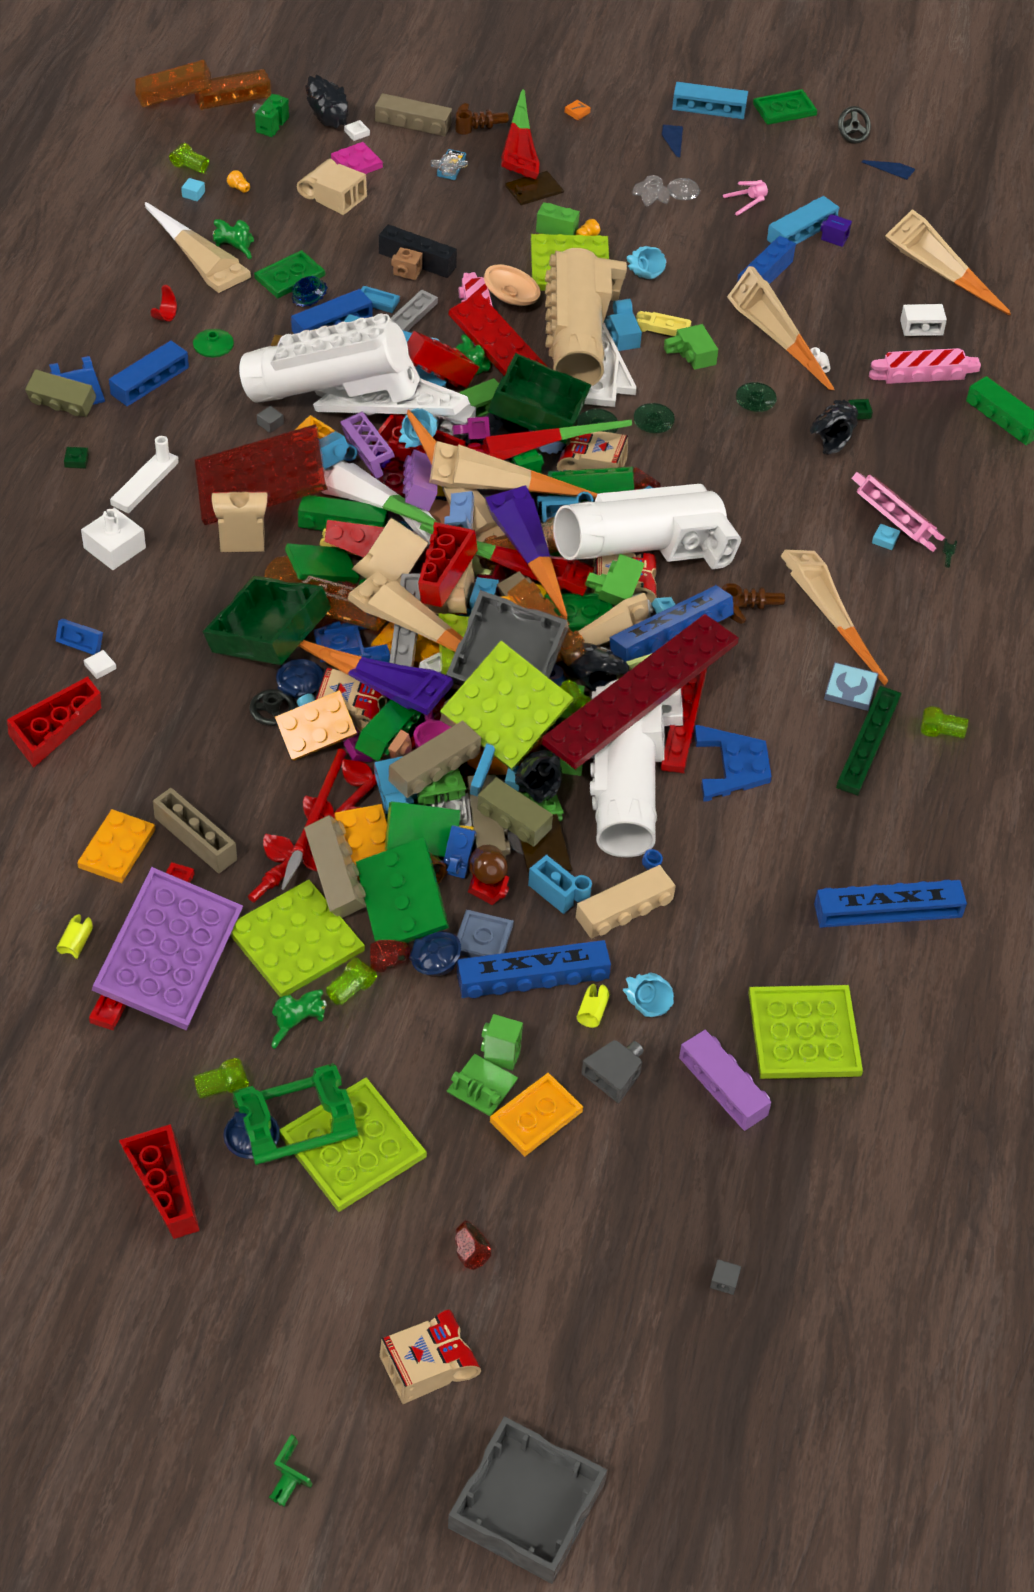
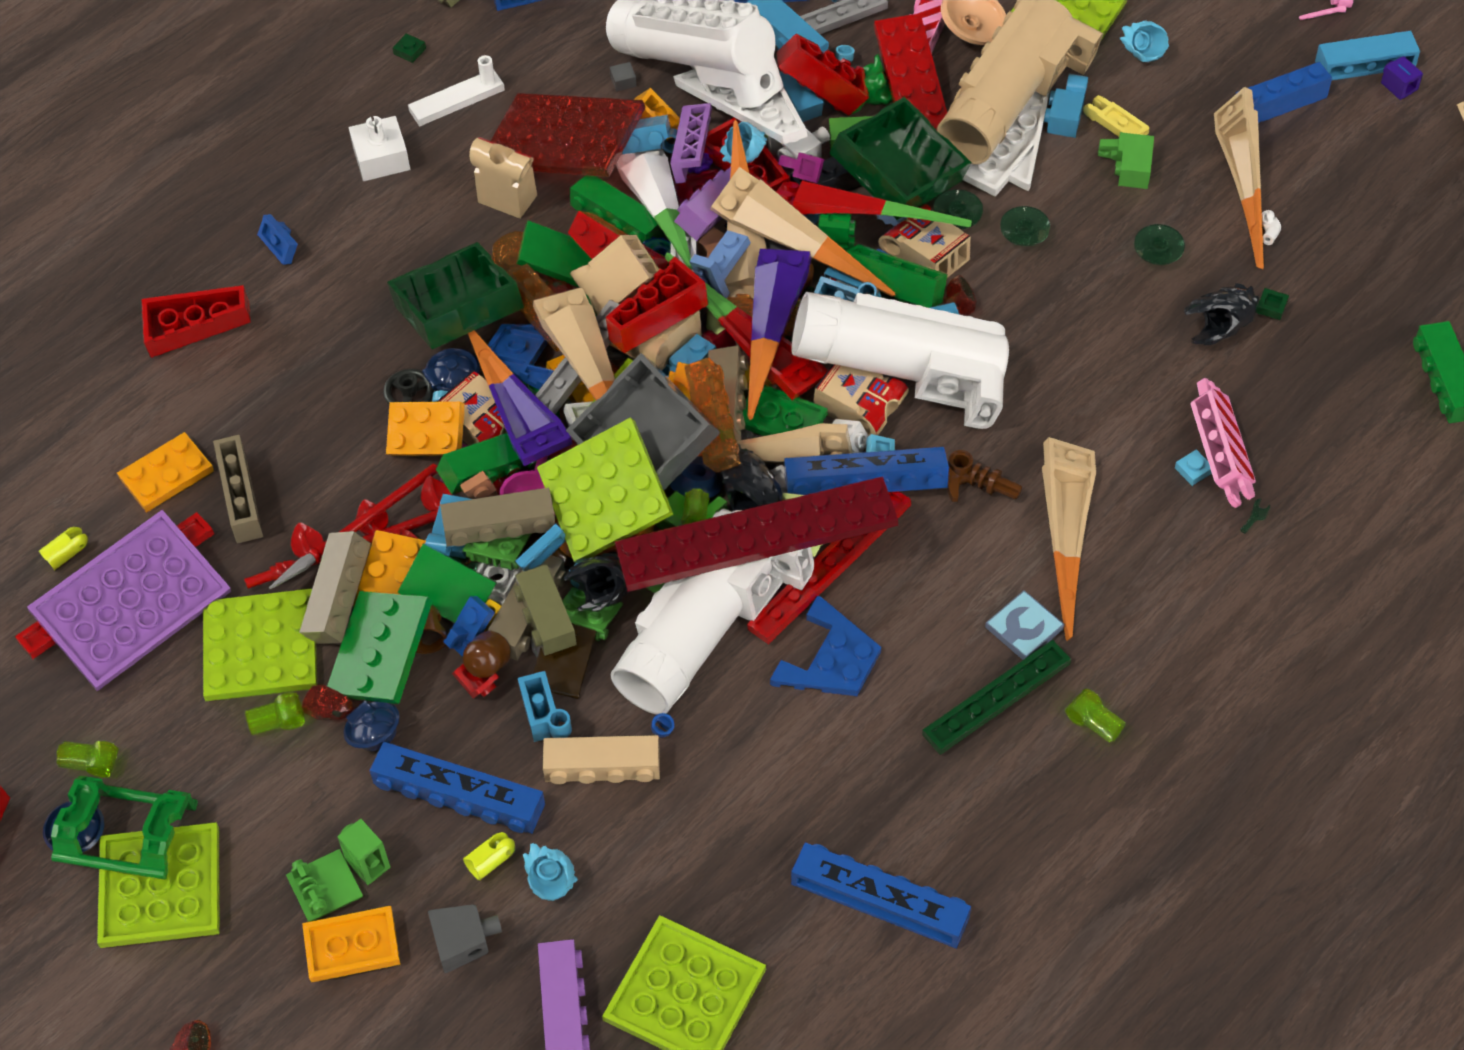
camera: 35 degrees right, 5 degrees up
(100, 664) = (280, 276): white tile -> none
(292, 1011) = (196, 720): green animal -> none
(483, 934) = (438, 727): sand blue tile -> none
(619, 581) = (837, 401): bright green hinge -> none
(923, 319) = (1426, 222): white brick -> none
(924, 366) = (1387, 280): bright pink hinge -> none

